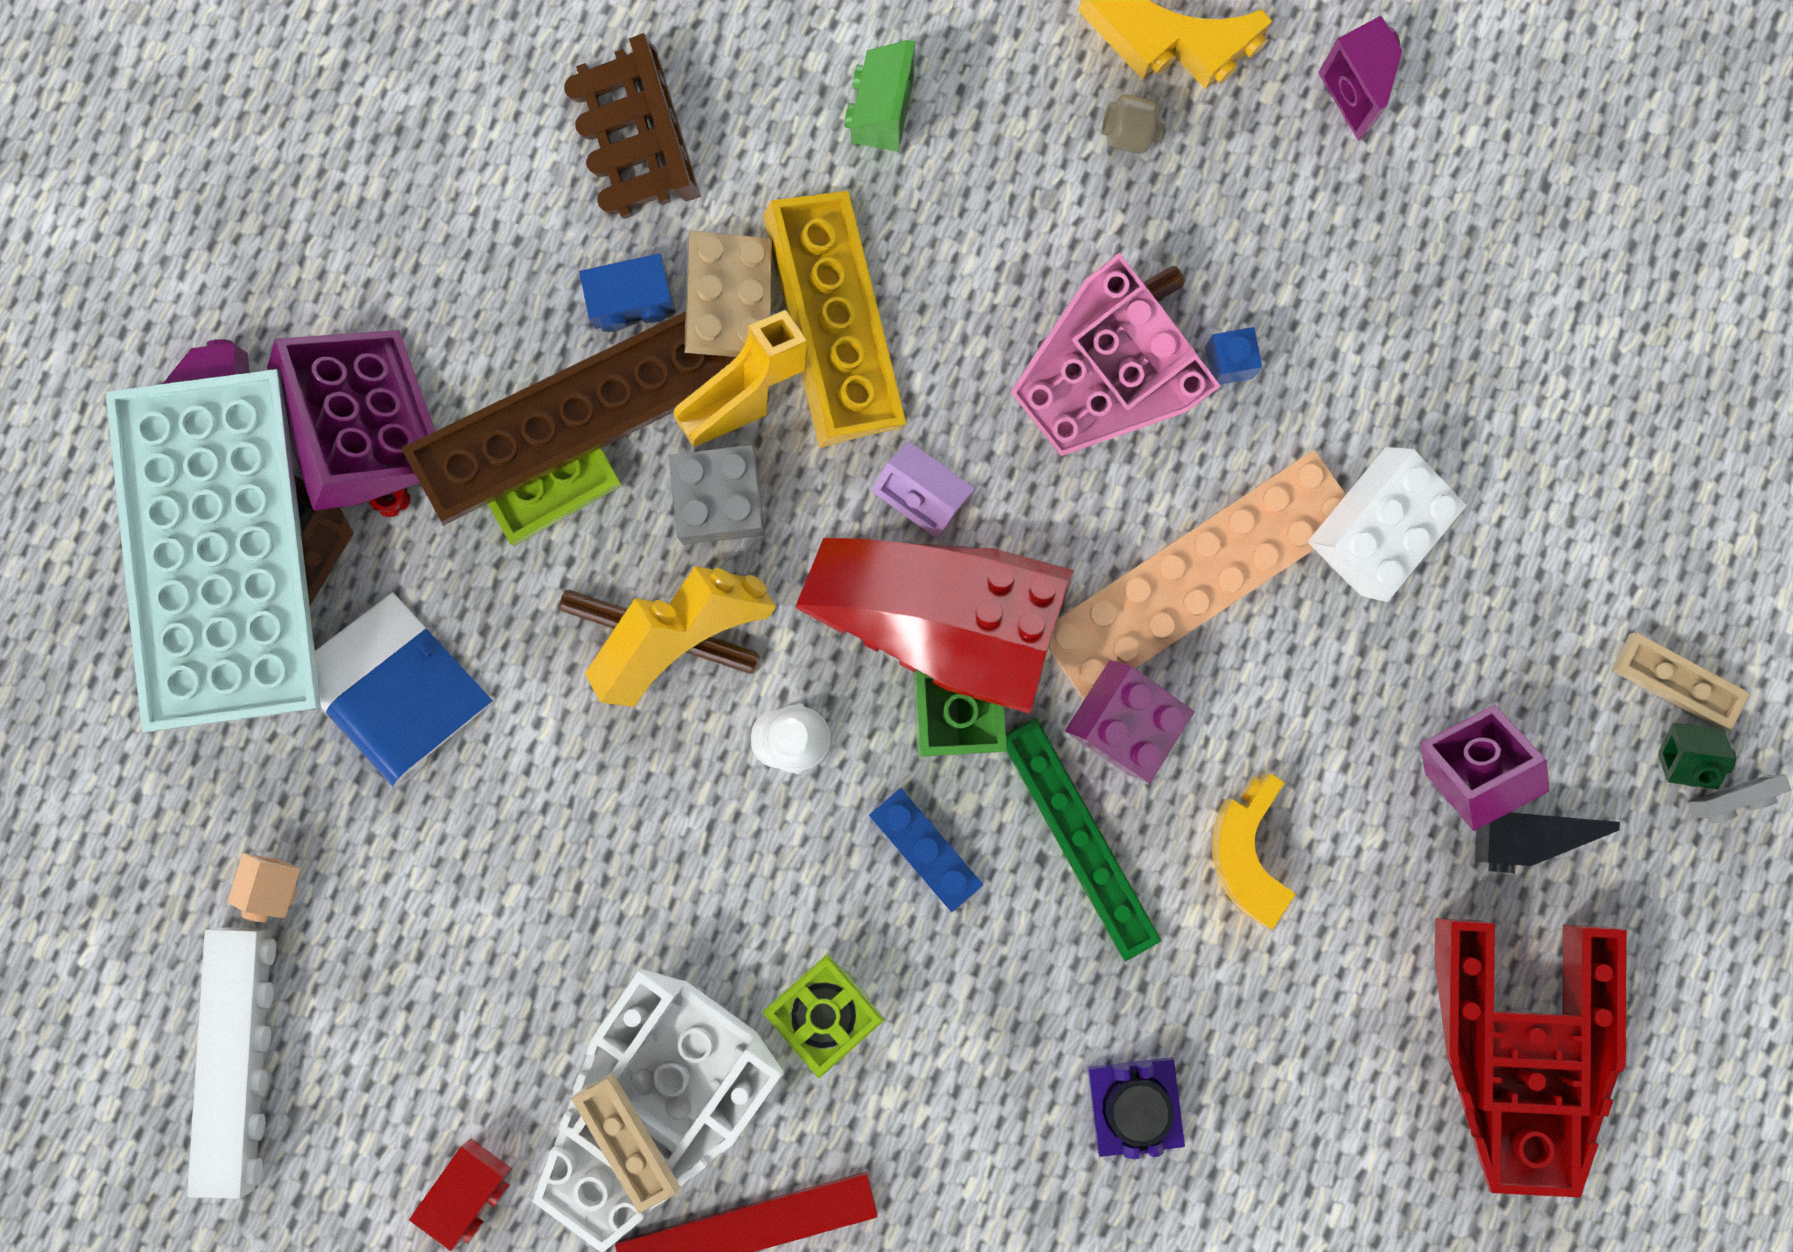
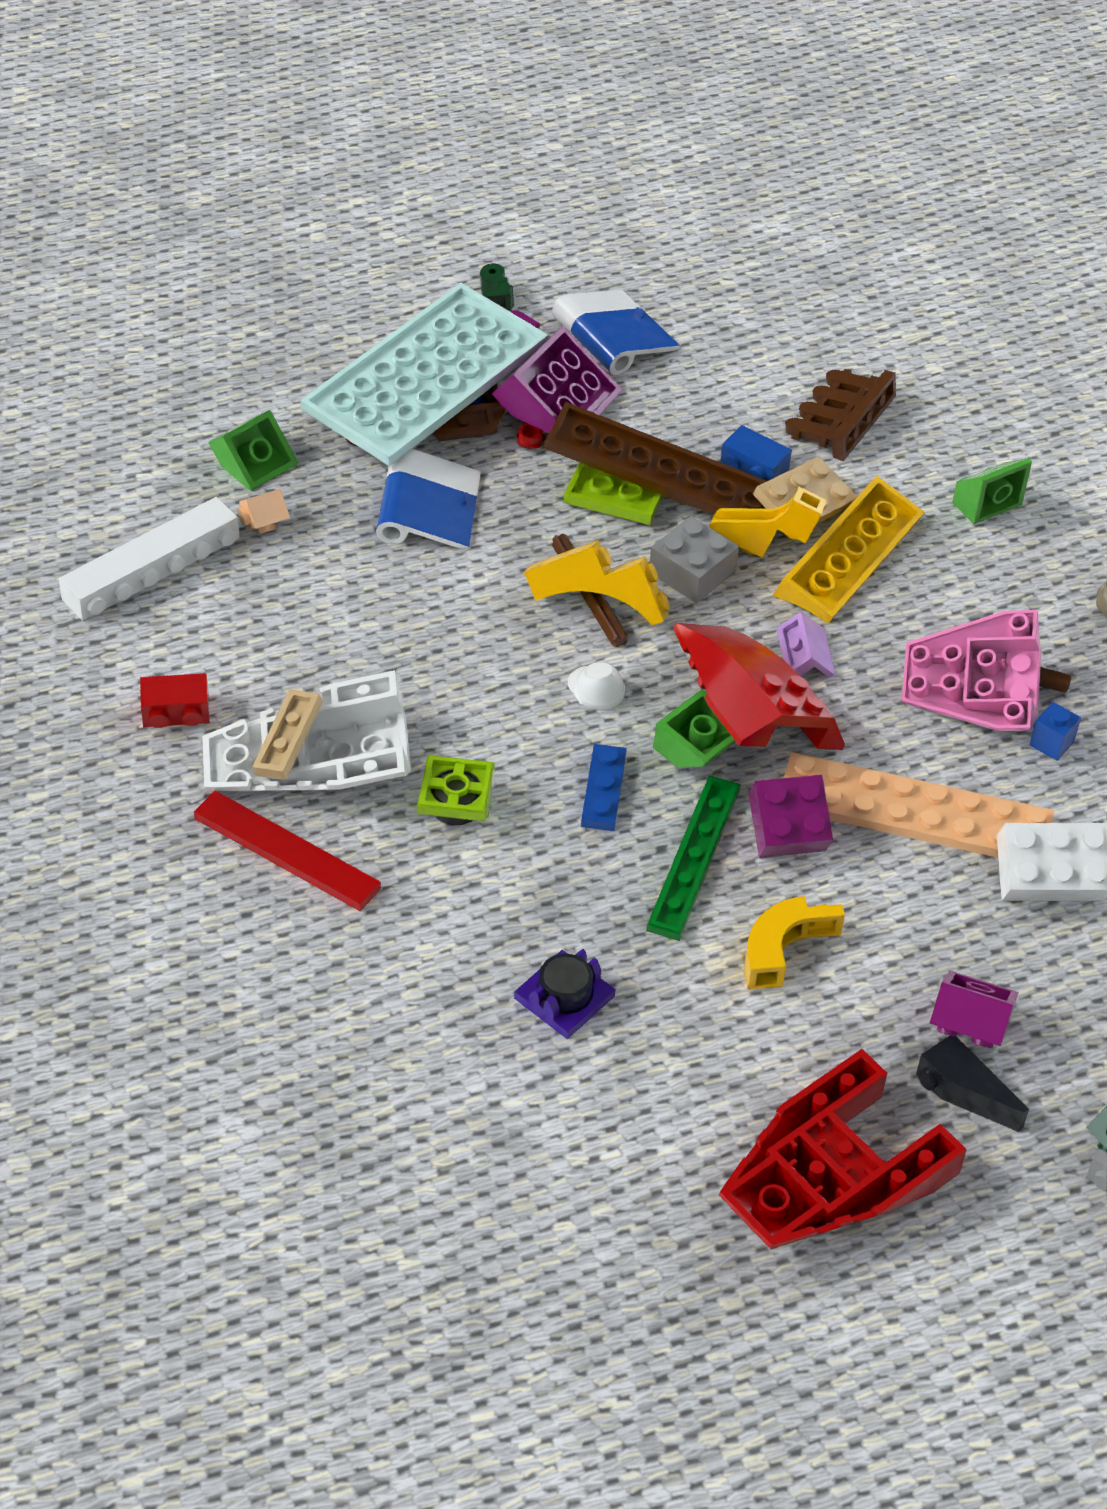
camera: 45 degrees right, 35 degrees down
(118, 327) = (496, 286): none -> dark green leg
(157, 818) = (254, 450): none -> bright green slope
(298, 253) = (612, 327): none -> blue door

